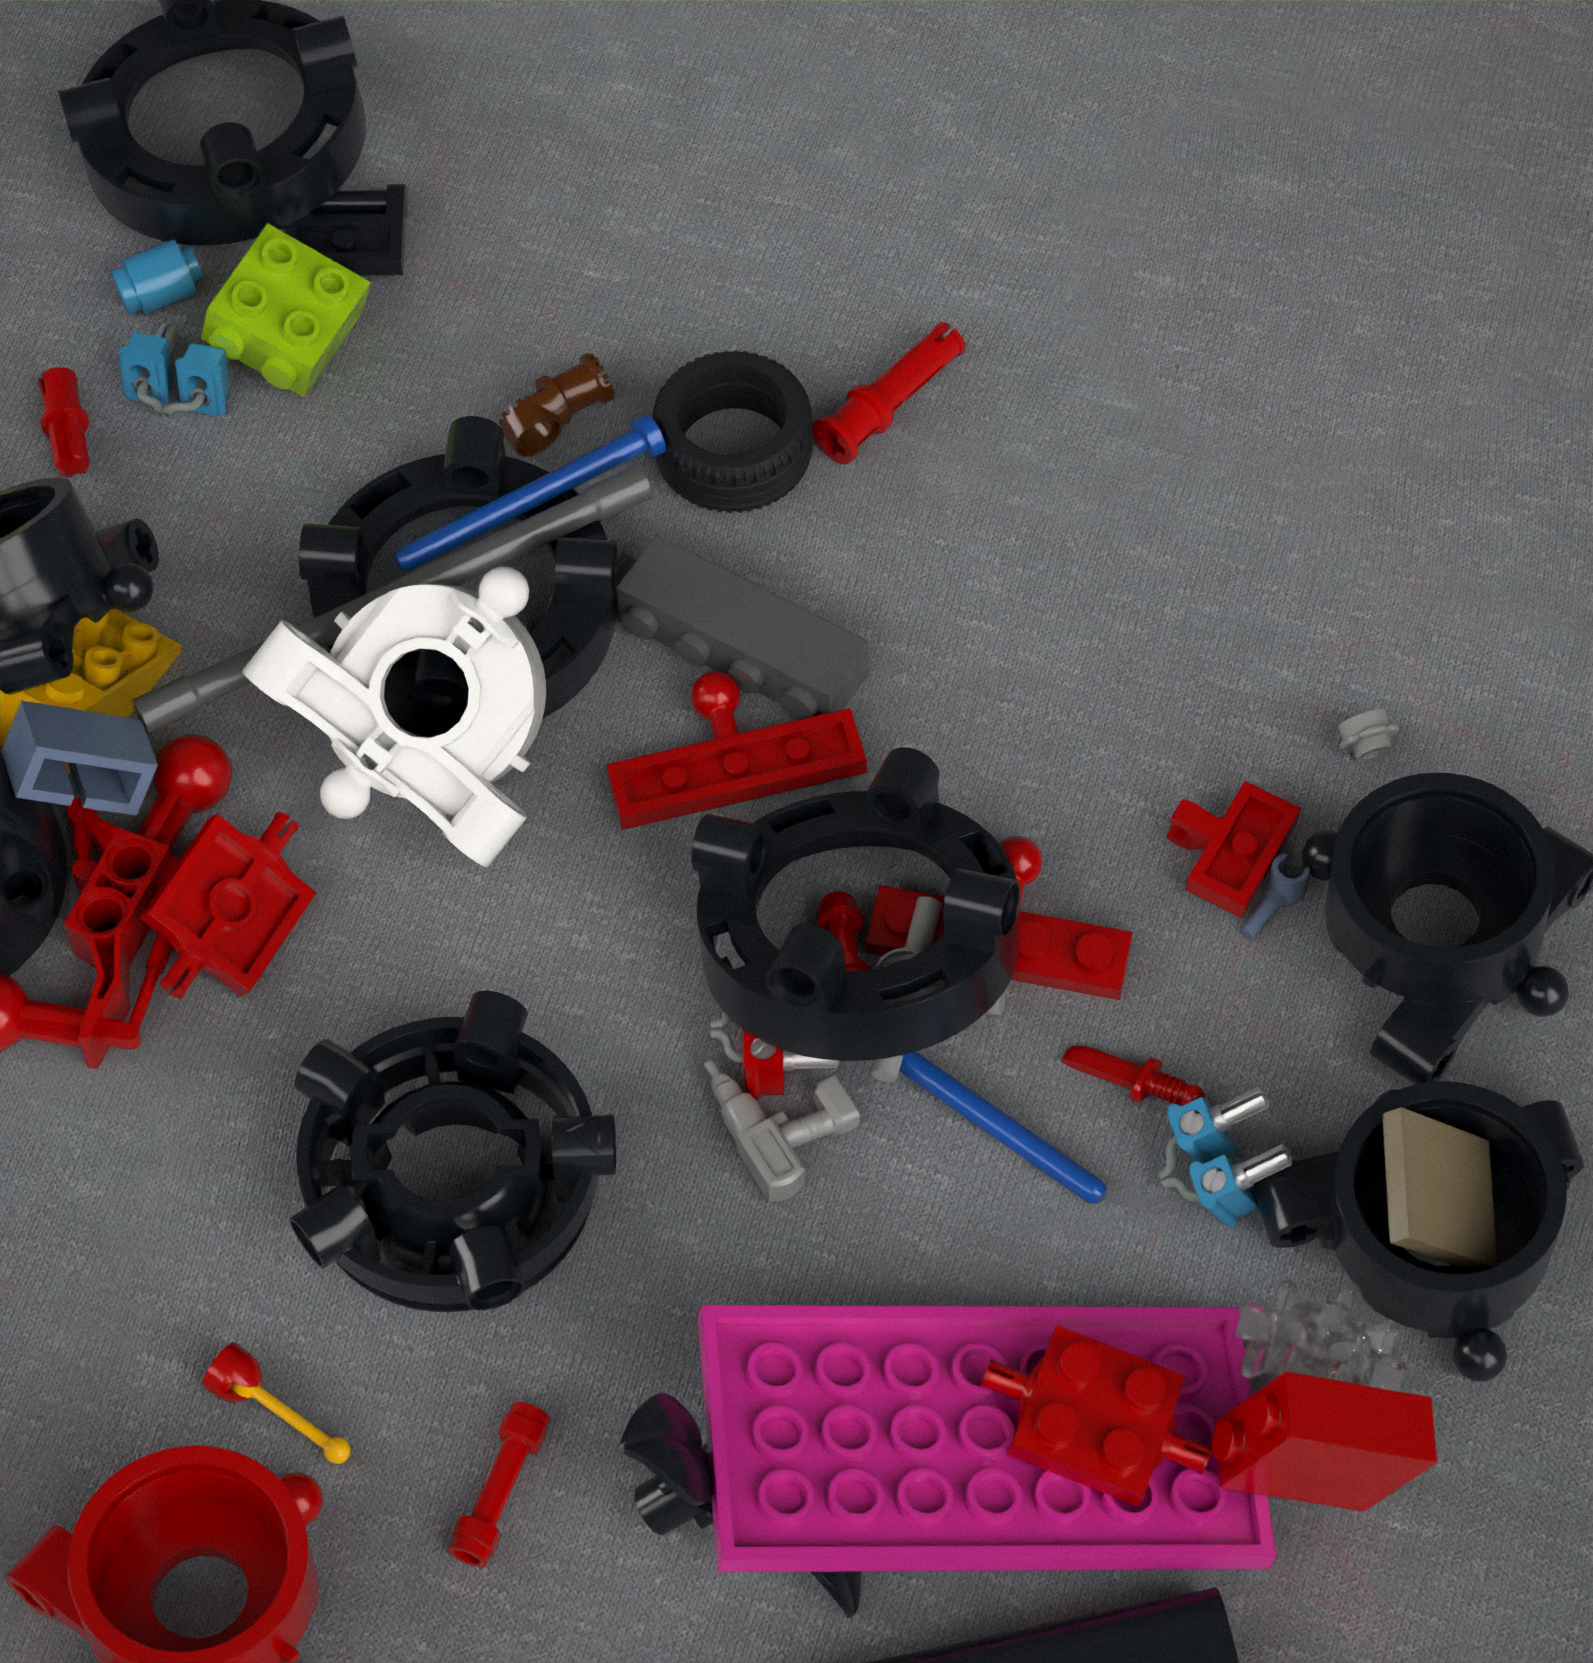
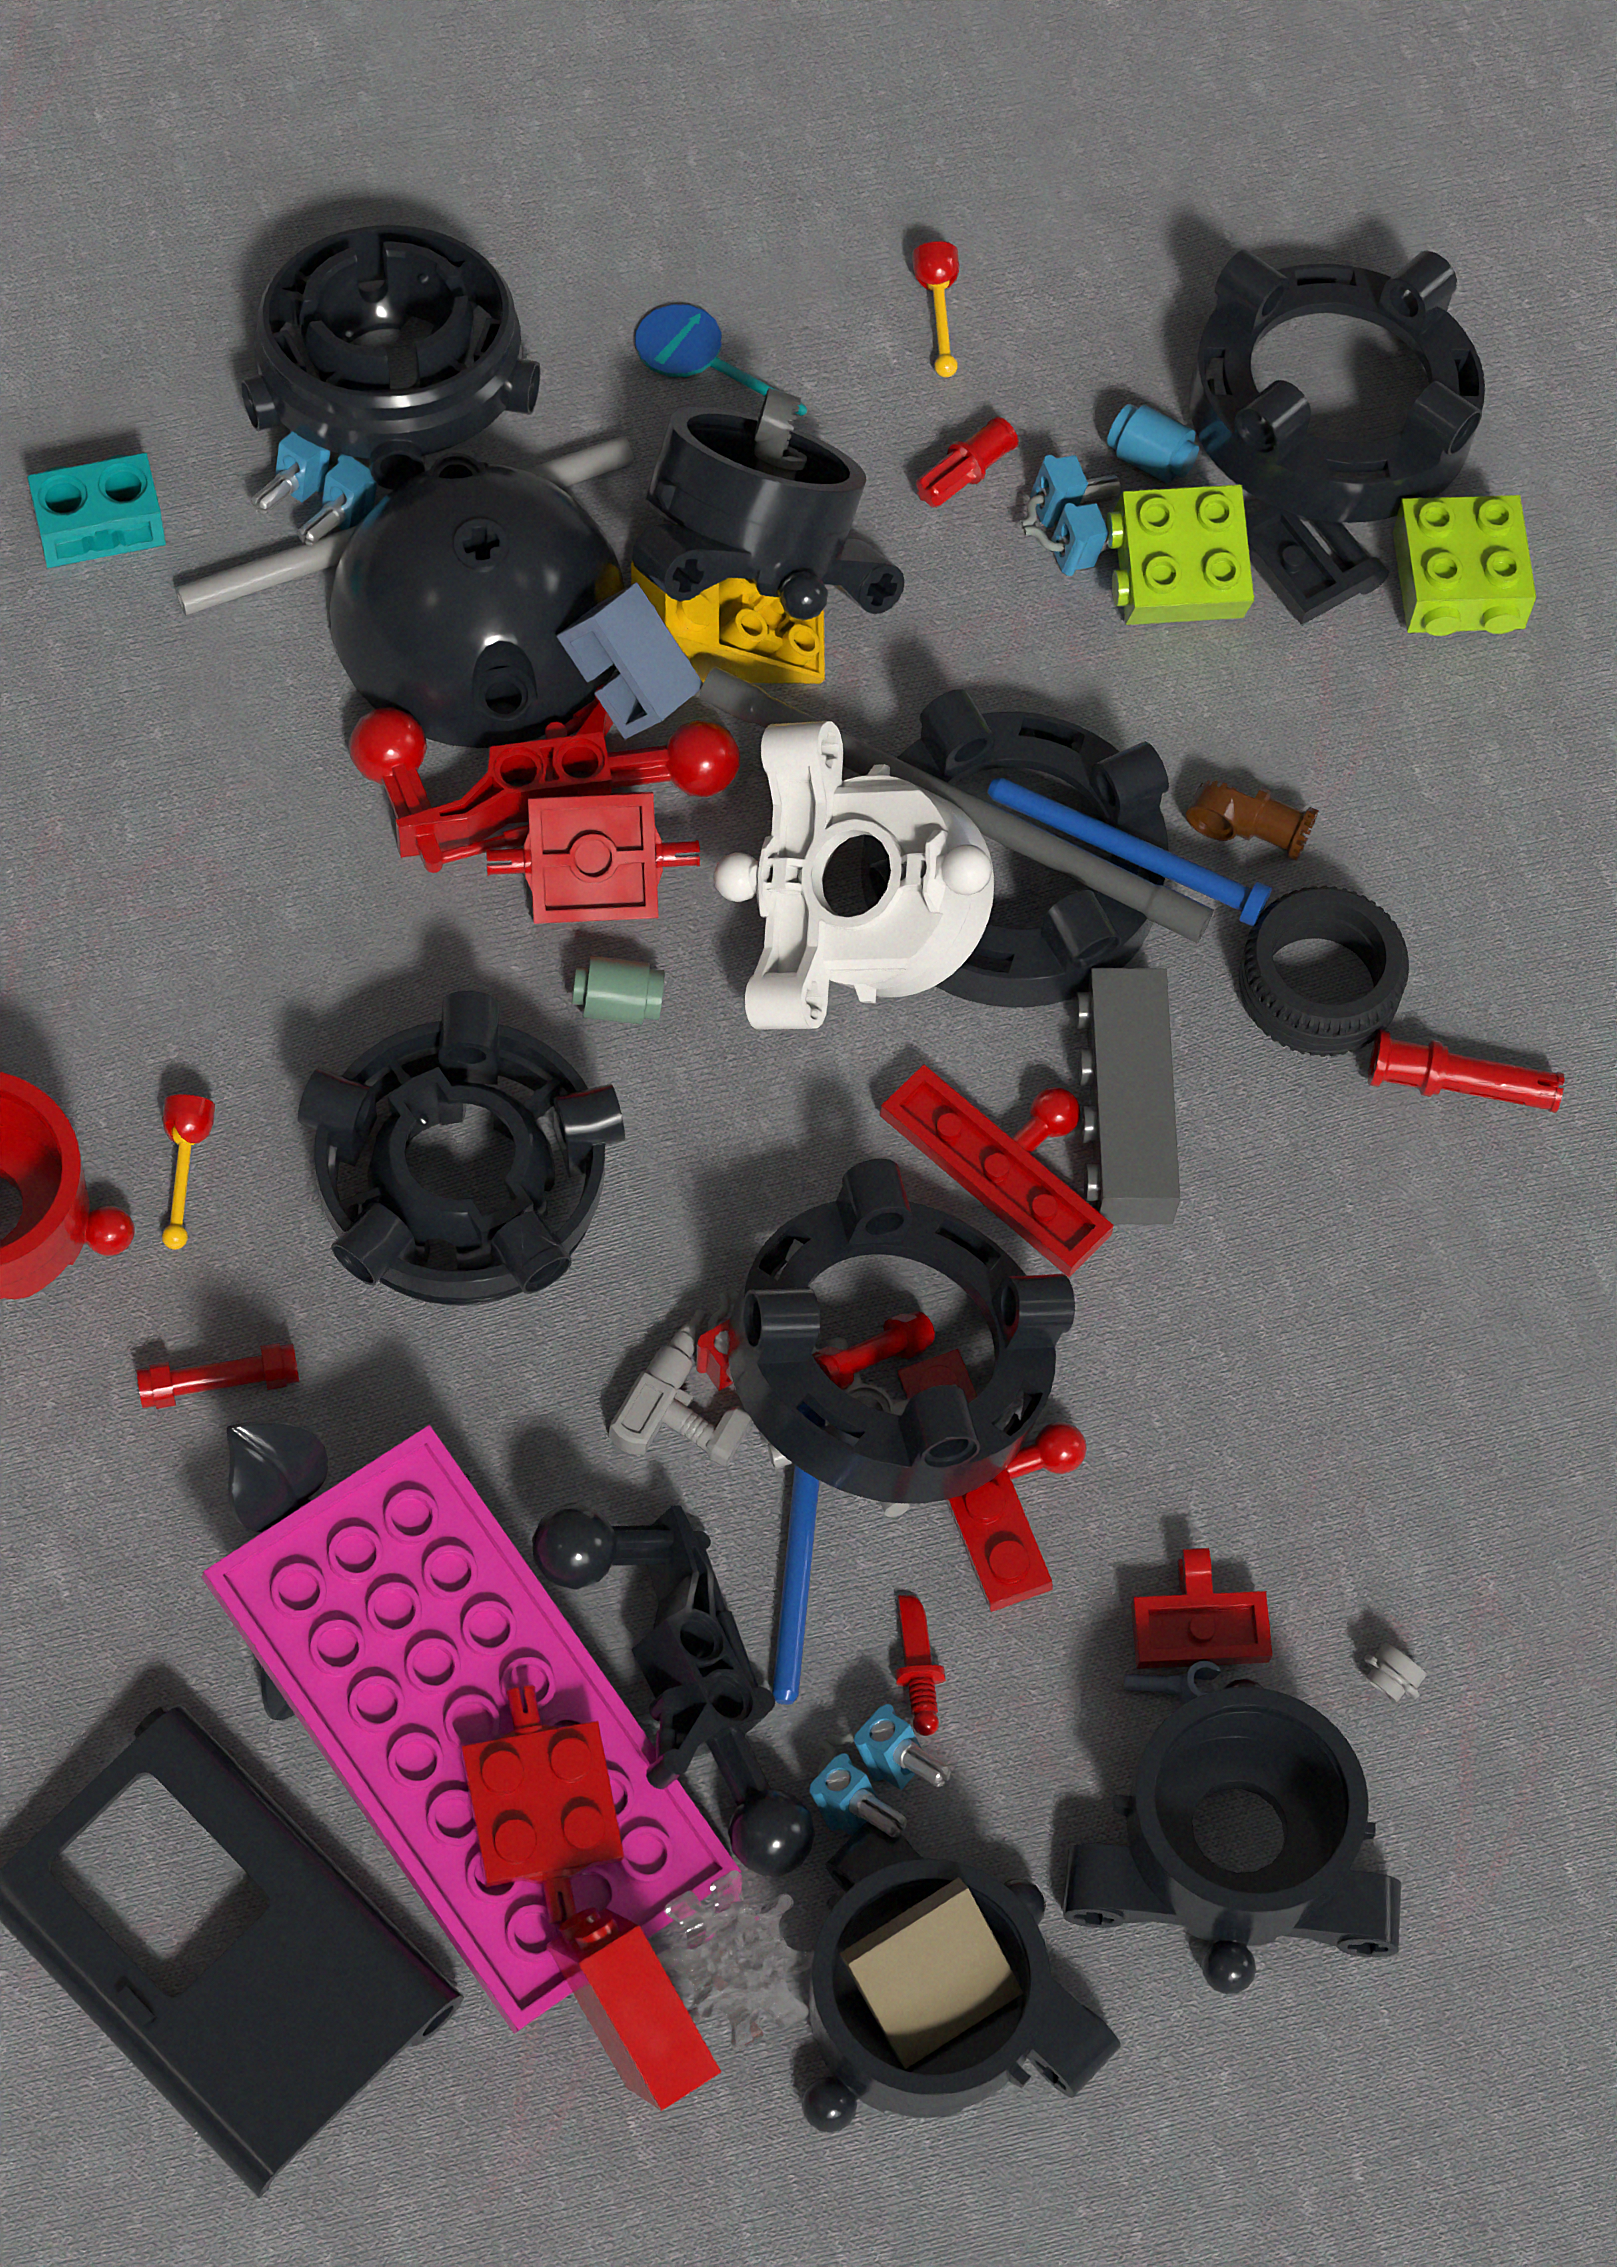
camera: 50 degrees right, 5 degrees up
(364, 959) = (618, 990): none -> sand green brick
(445, 127) = (1464, 564): none -> lime brick
(1037, 1245) = (692, 1666): none -> black piece

